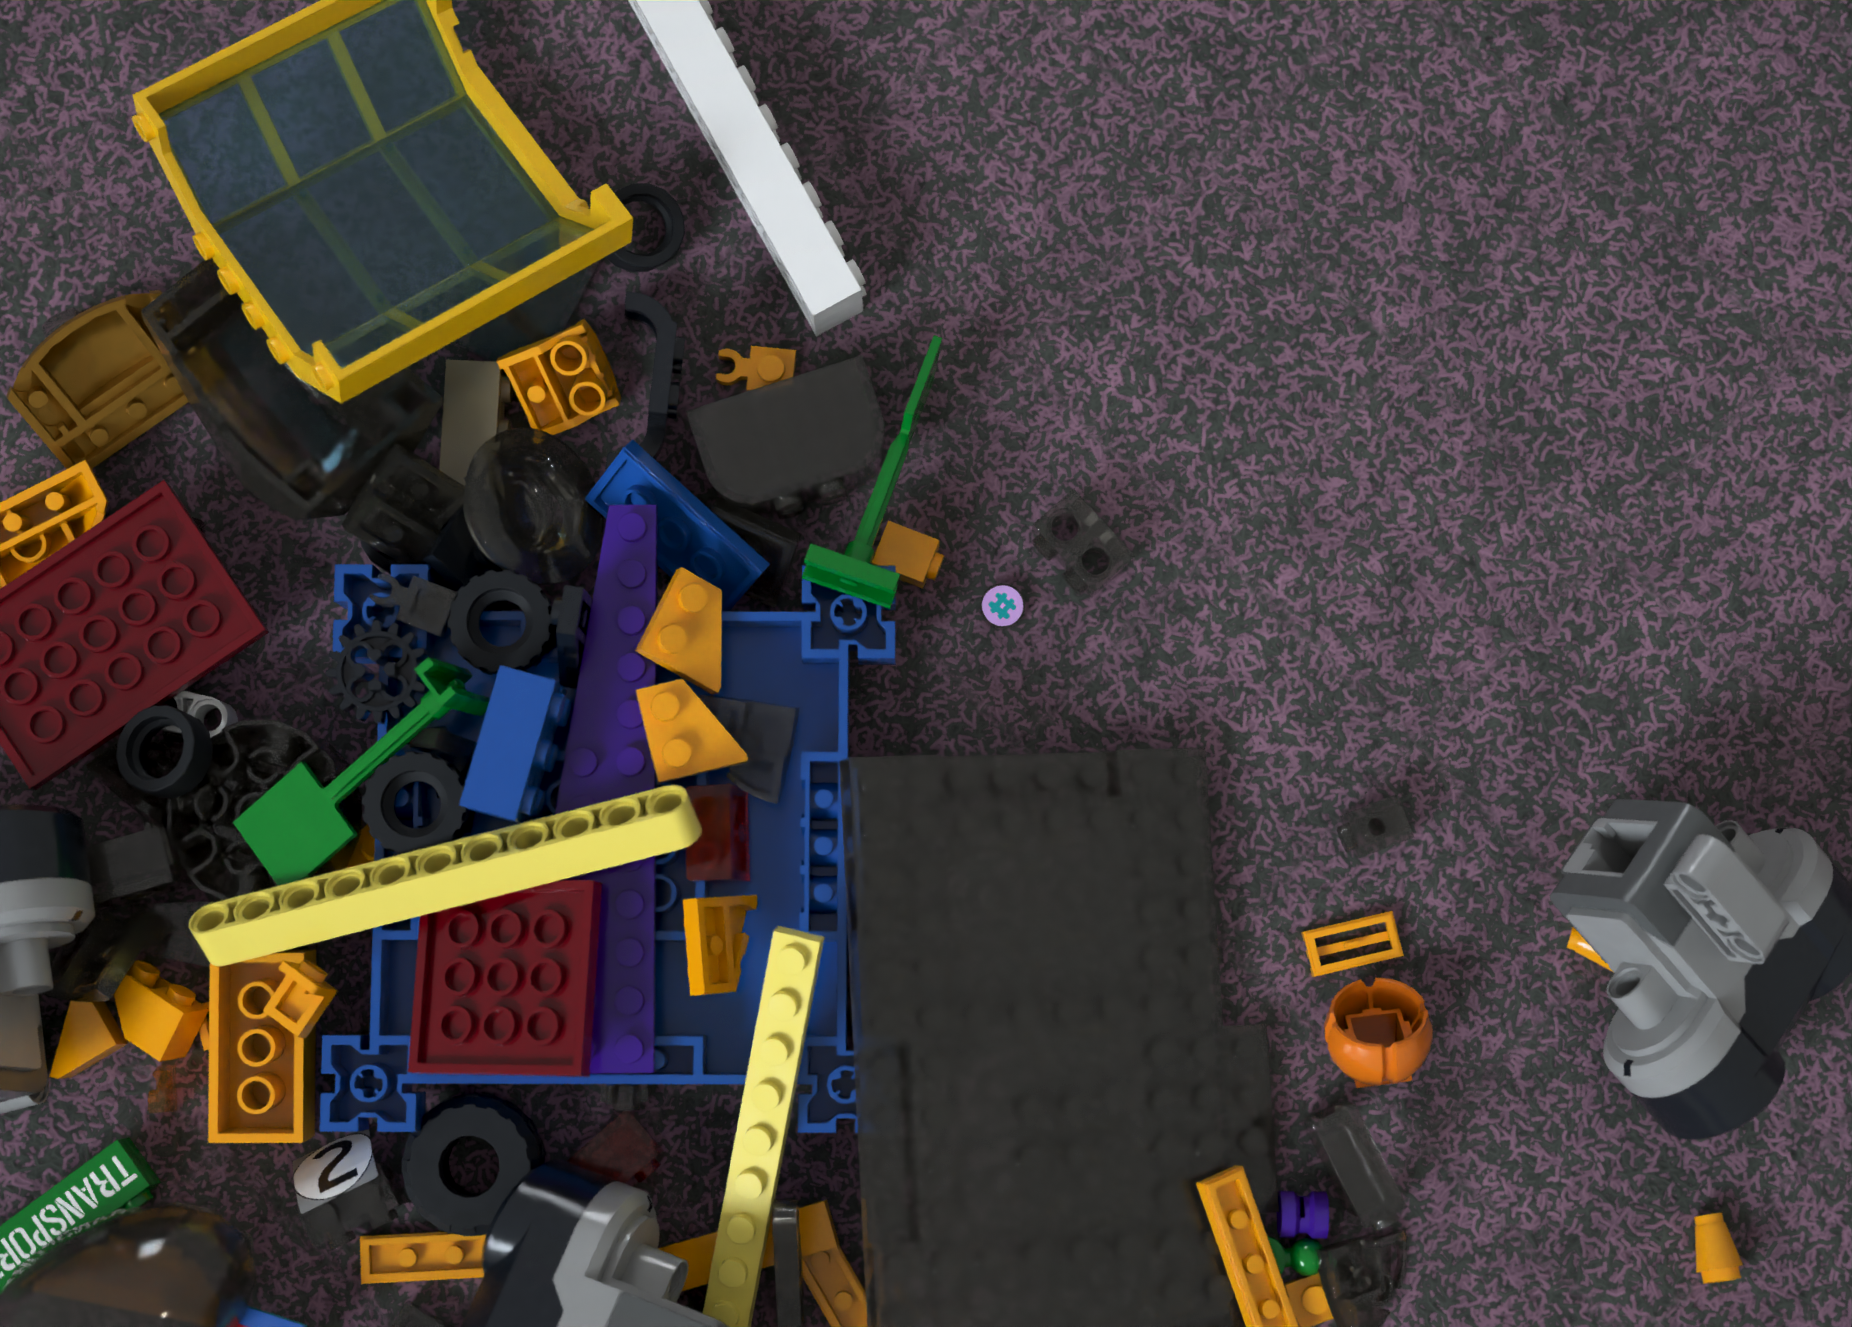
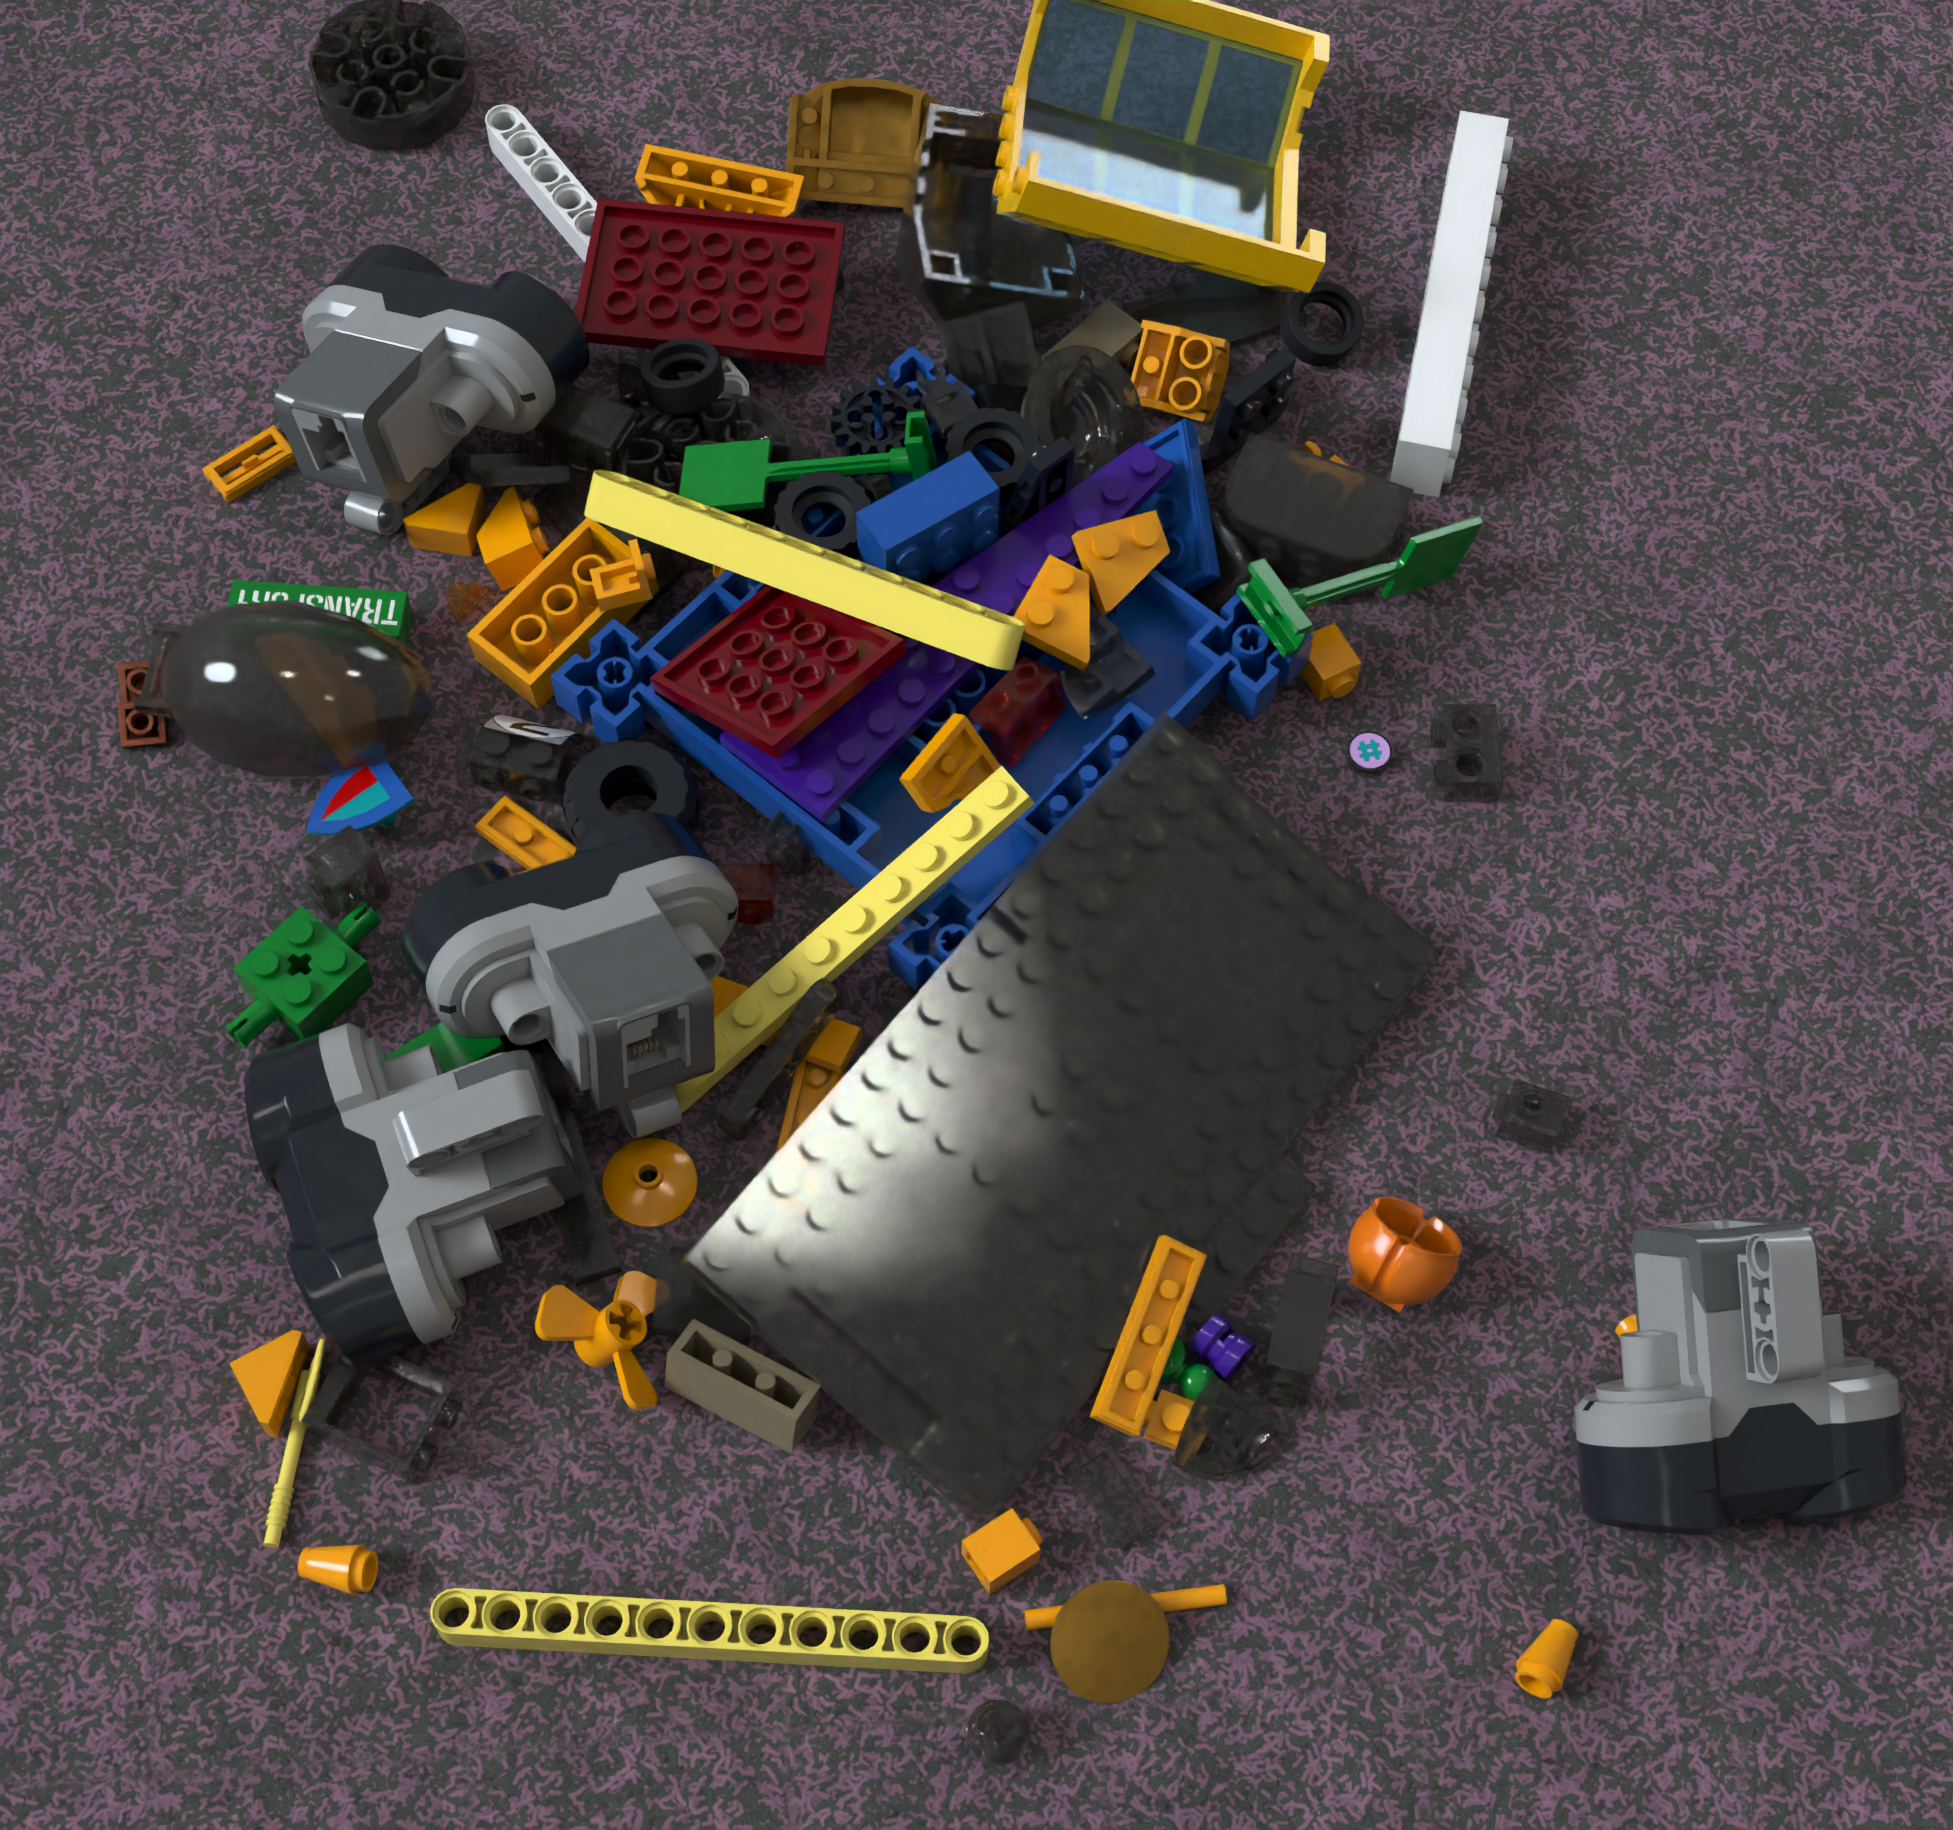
camera: 40 degrees right, 20 degrees down
(1314, 952) = (1431, 1205): light orange tile -> none

